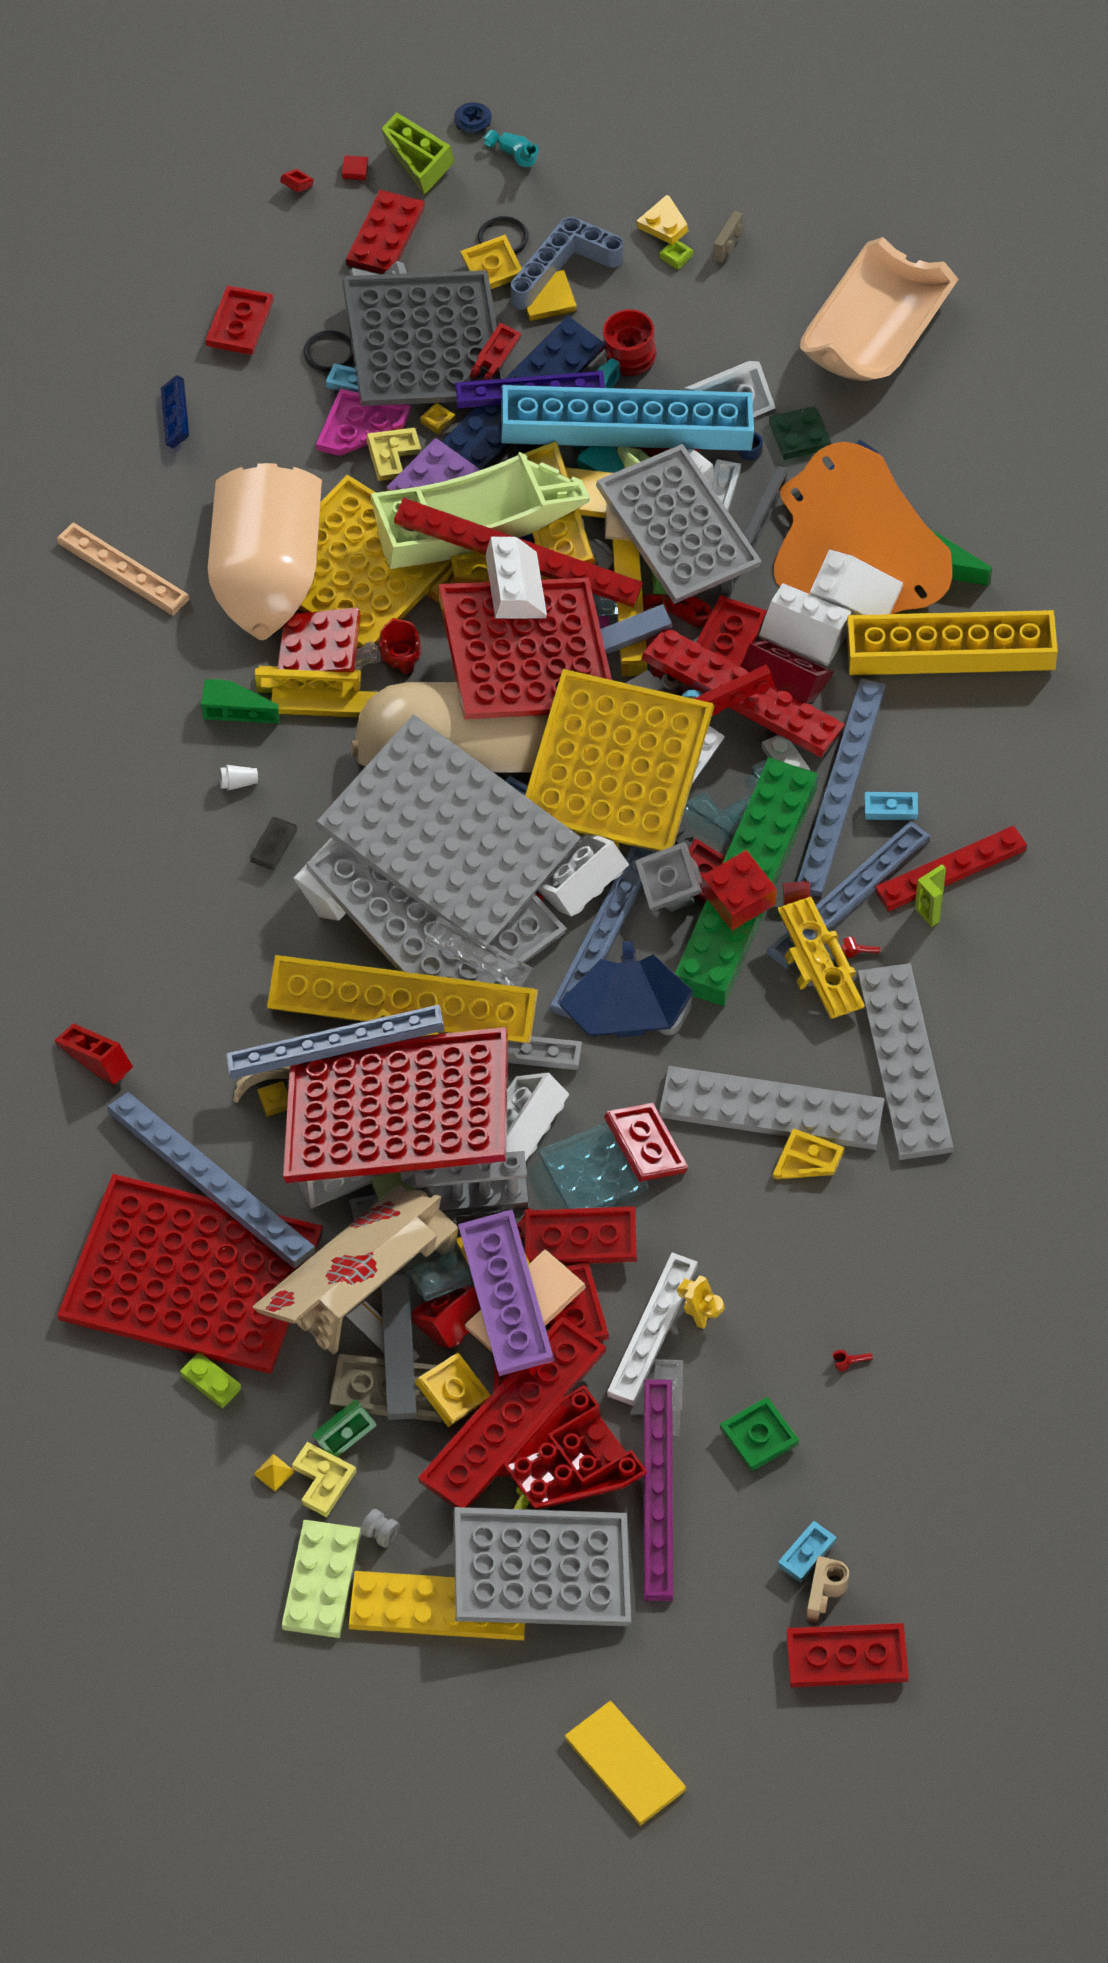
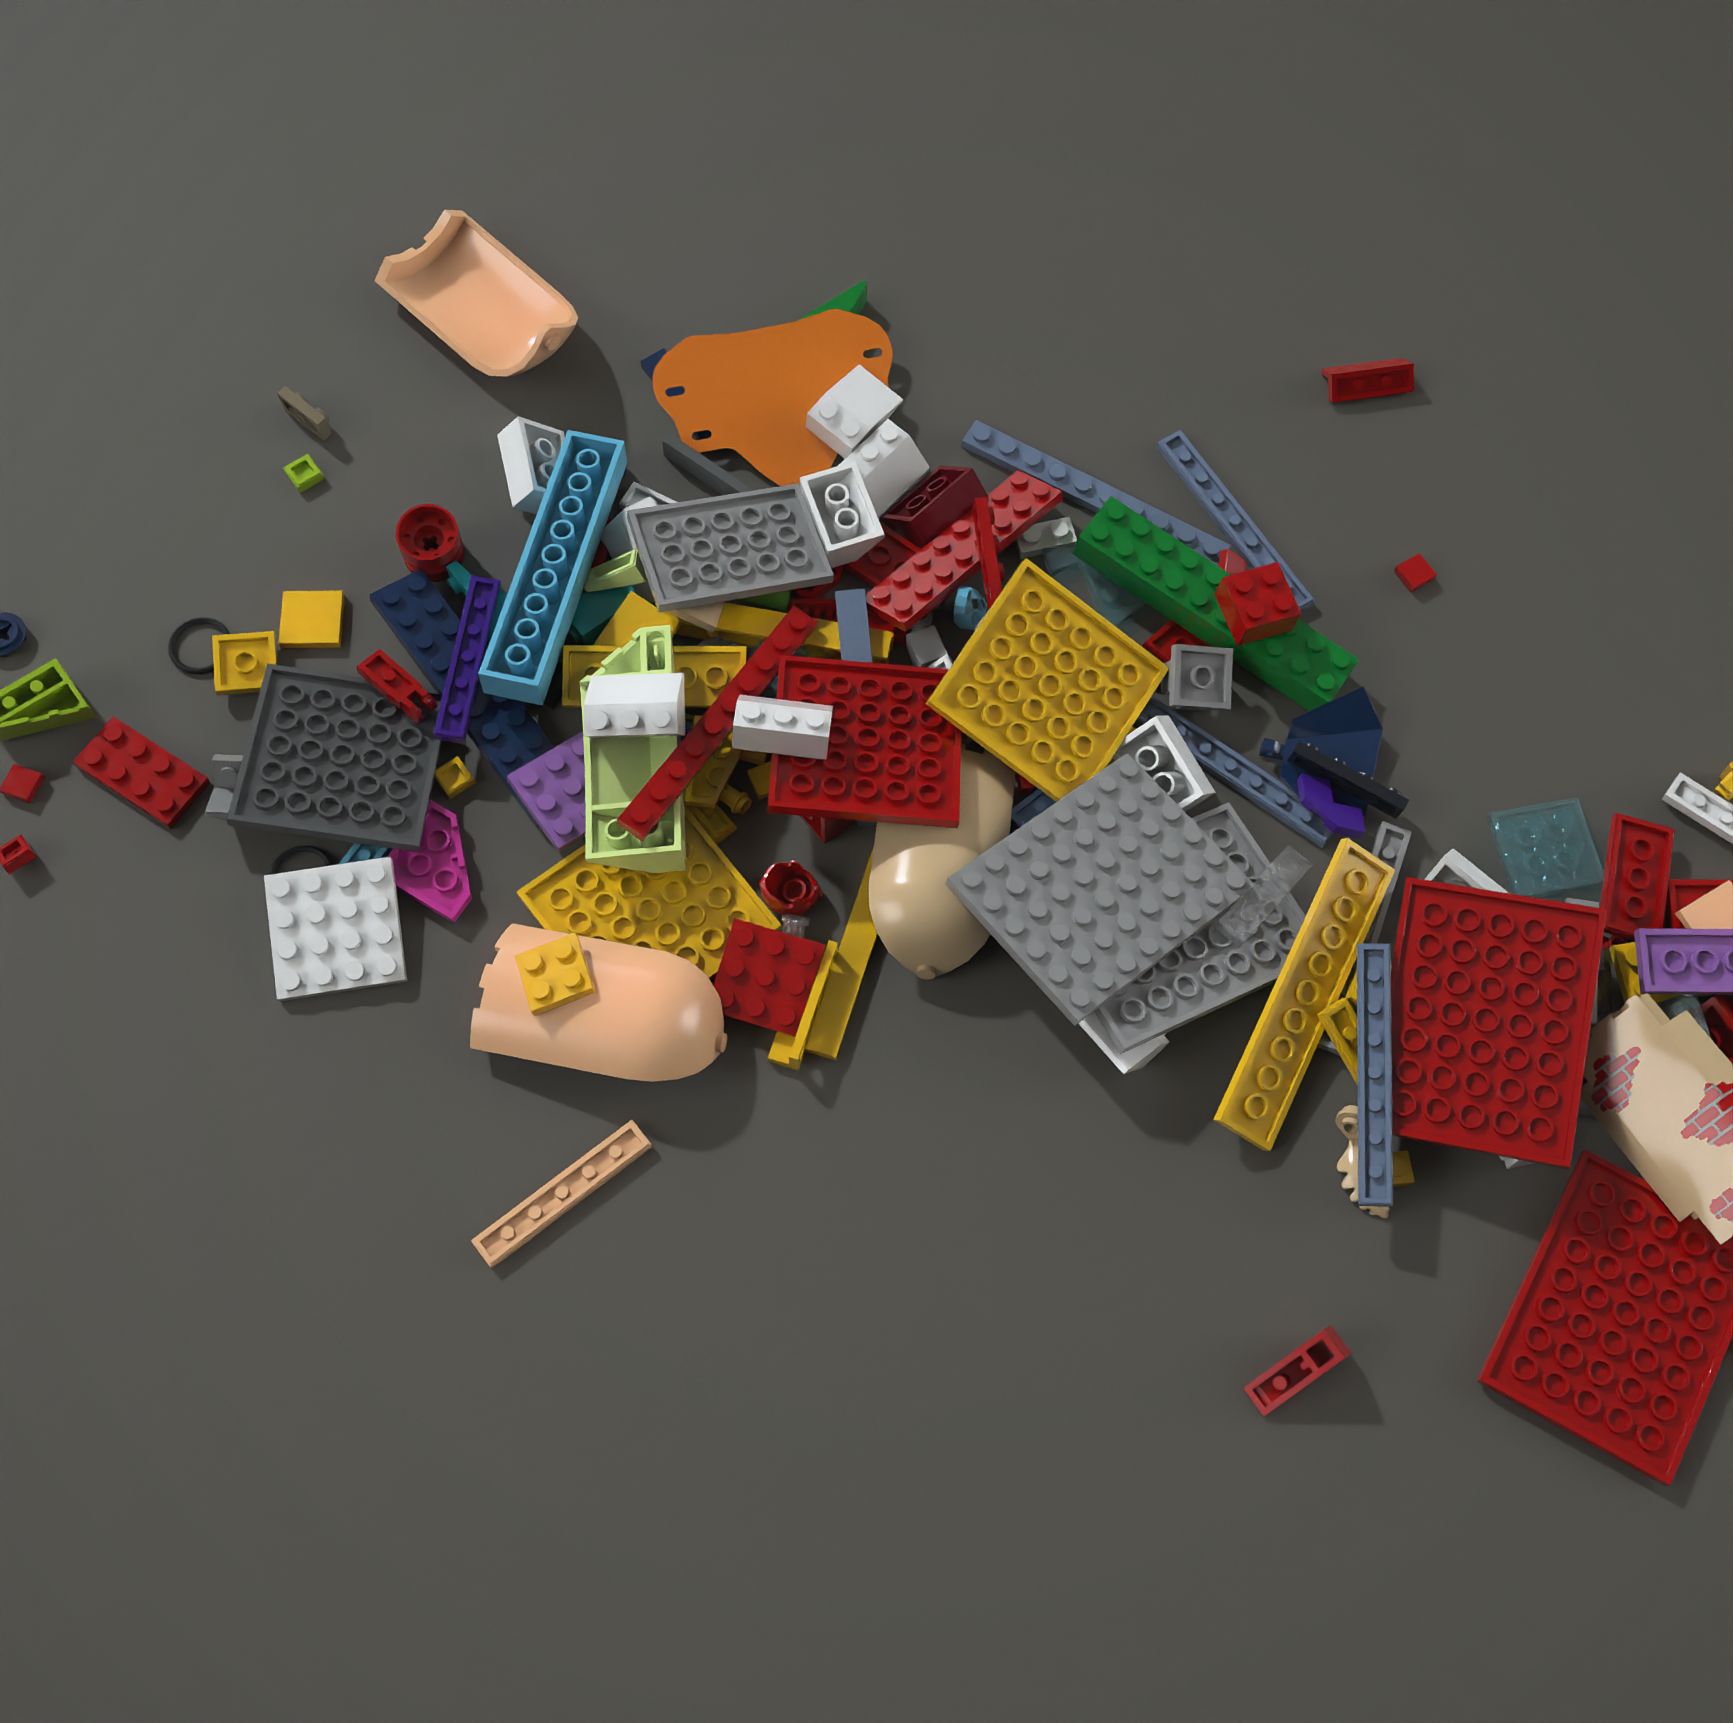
camera: 80 degrees left, 10 degrees up
(174, 412) = (337, 1077): clear blue plate -> none
(211, 1180) = (1505, 1264): sand blue plate -> none
(233, 702) = (815, 1099): green slope -> none
(237, 777) = (928, 1117): white cone -> none
(239, 320) = (216, 969): red plate -> none
(273, 843) = (1035, 1094): clear smoke plate -> none
(274, 499) = (554, 974): none -> yellow plate
(289, 377) = (335, 928): none -> white plate
(388, 447) = (487, 842): light yellow plate -> none
(503, 487) = (635, 706): none -> white slope
(515, 145) = (73, 595): teal arm -> none
(566, 239) = (242, 569): sand blue beam -> none
(569, 1001) = (1341, 819): none -> dark purple tile
(607, 1012) = (1341, 776): none -> black plate
(646, 1142) = (1522, 787): tile -> none
(664, 221) = (254, 471): yellow wing -> none
(738, 591) = (842, 513): none -> white slope
(771, 1107) = (1488, 662): light grey plate -> none
(799, 432) = (608, 413): clear green plate -> none
(807, 1157) = (1560, 640): yellow wing -> none
(814, 959) = (1329, 563): yellow piece -> none
(843, 1038) = (1415, 572): none -> red tile
(851, 948) = (1303, 536): red hand -> none
(891, 805) = (1135, 454): medium azure plate -> none
(905, 1062) = (1451, 524): light grey plate -> none
(930, 894) = (1269, 443): lime panel -> none
(951, 642) = (947, 343): yellow brick -> none
(957, 864) = (1222, 424): red plate -> none
(1038, 970) = (1369, 379): none -> red panel

